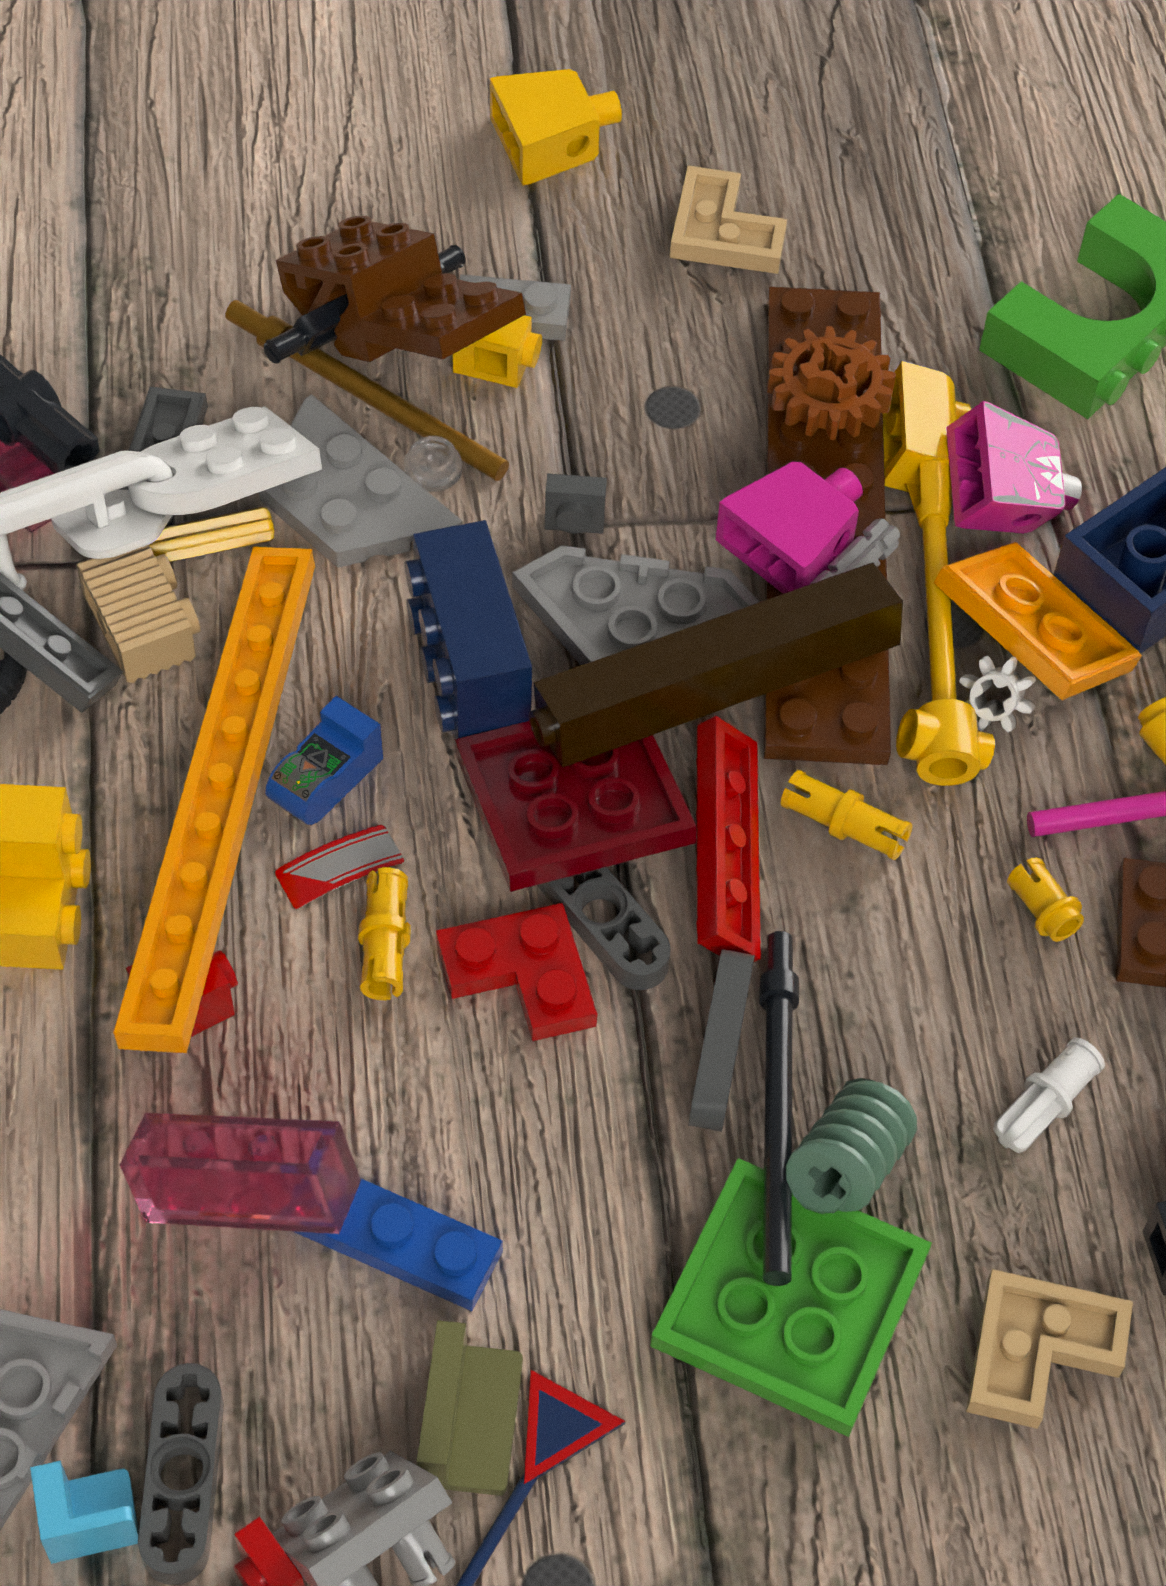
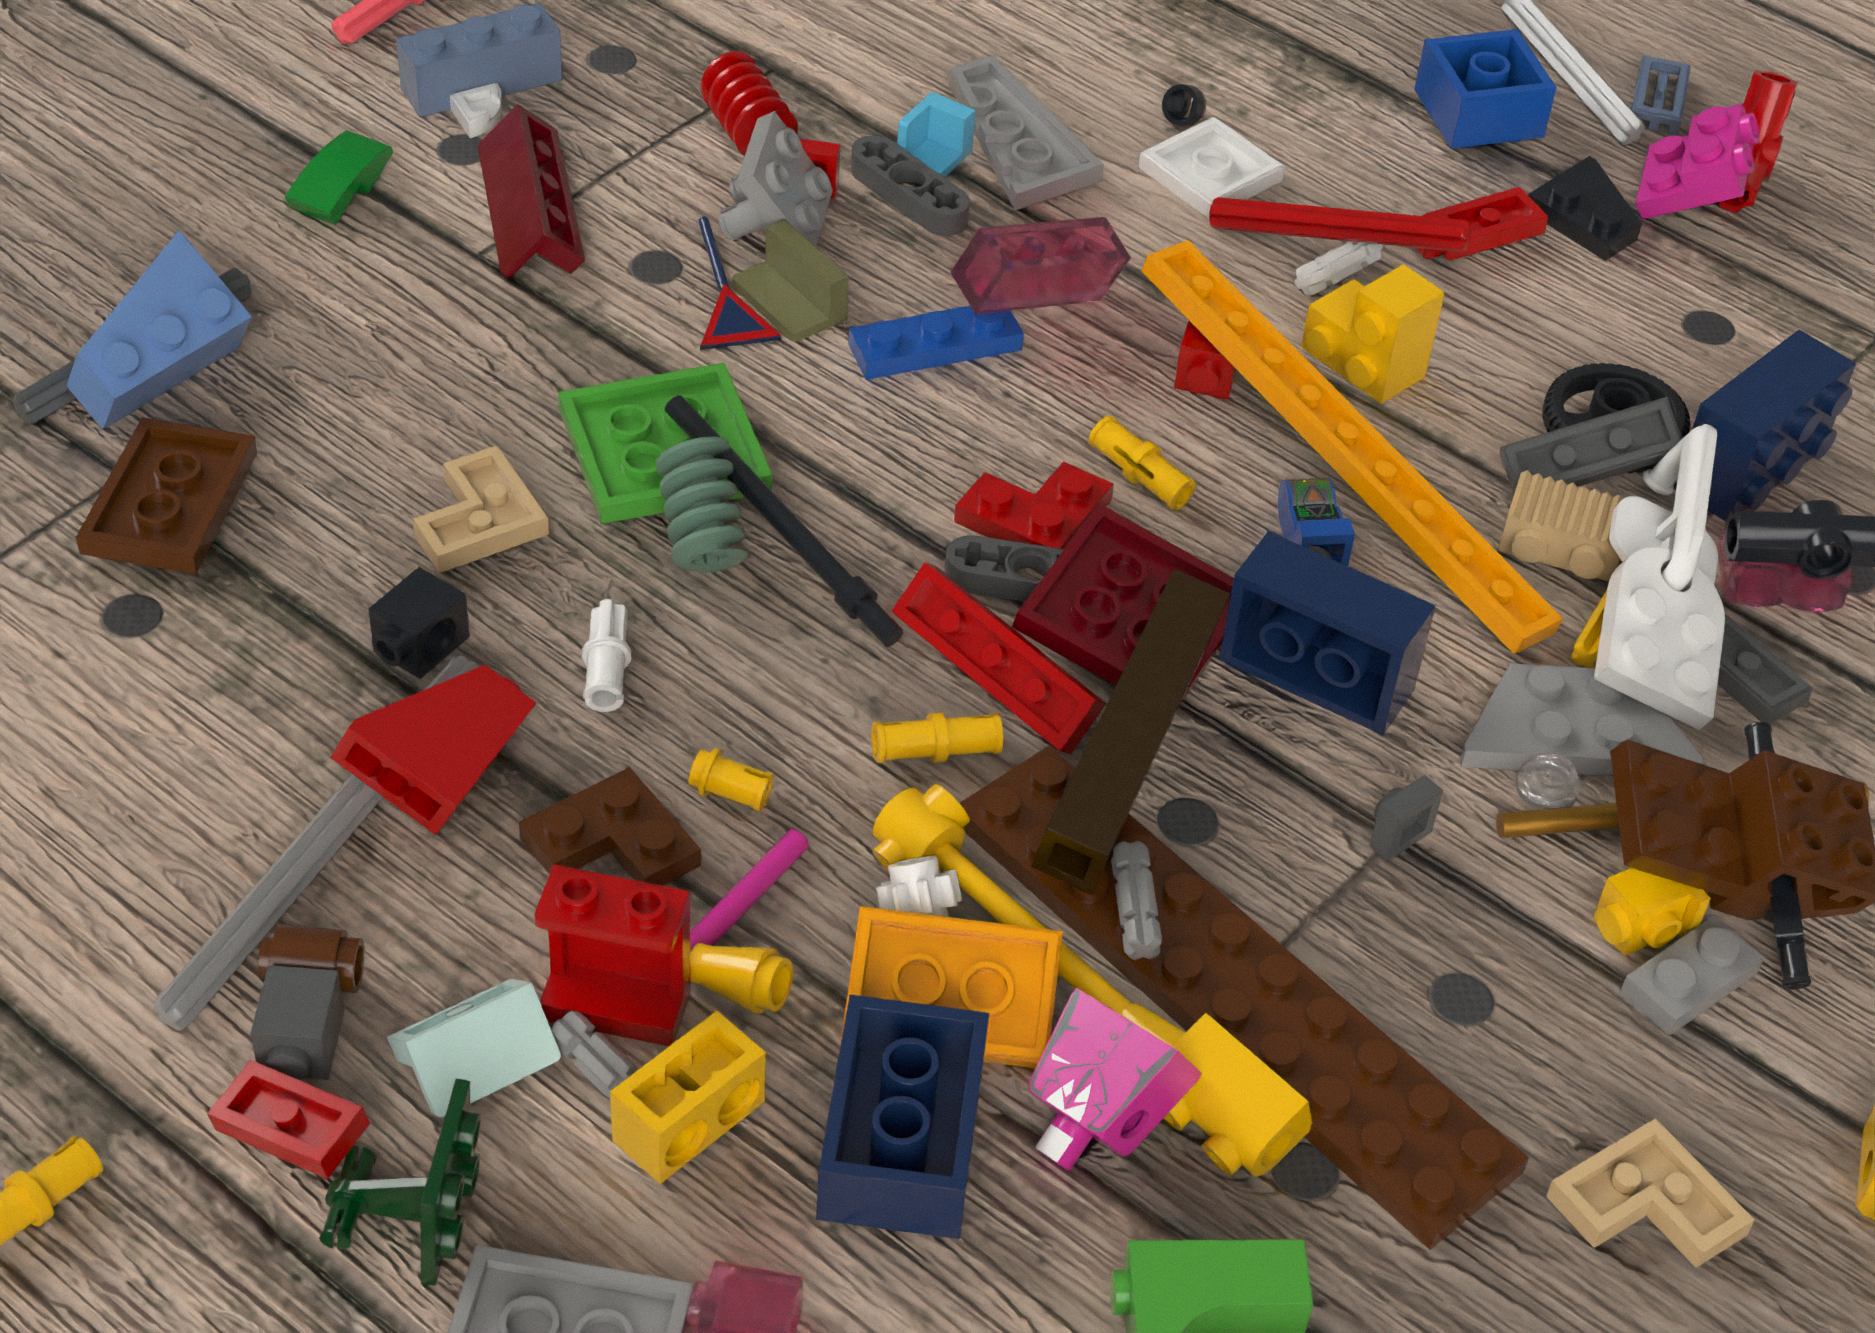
camera: 135 degrees right, 10 degrees down
(337, 864) = (1227, 500): sticker -> none
(616, 605) = (1257, 773): light grey plate -> none
(721, 1040) = (858, 537): dark grey beam -> none
(790, 523) = (1211, 878): dark pink torso -> none
(831, 383) = (1340, 1037): dark orange gear -> none

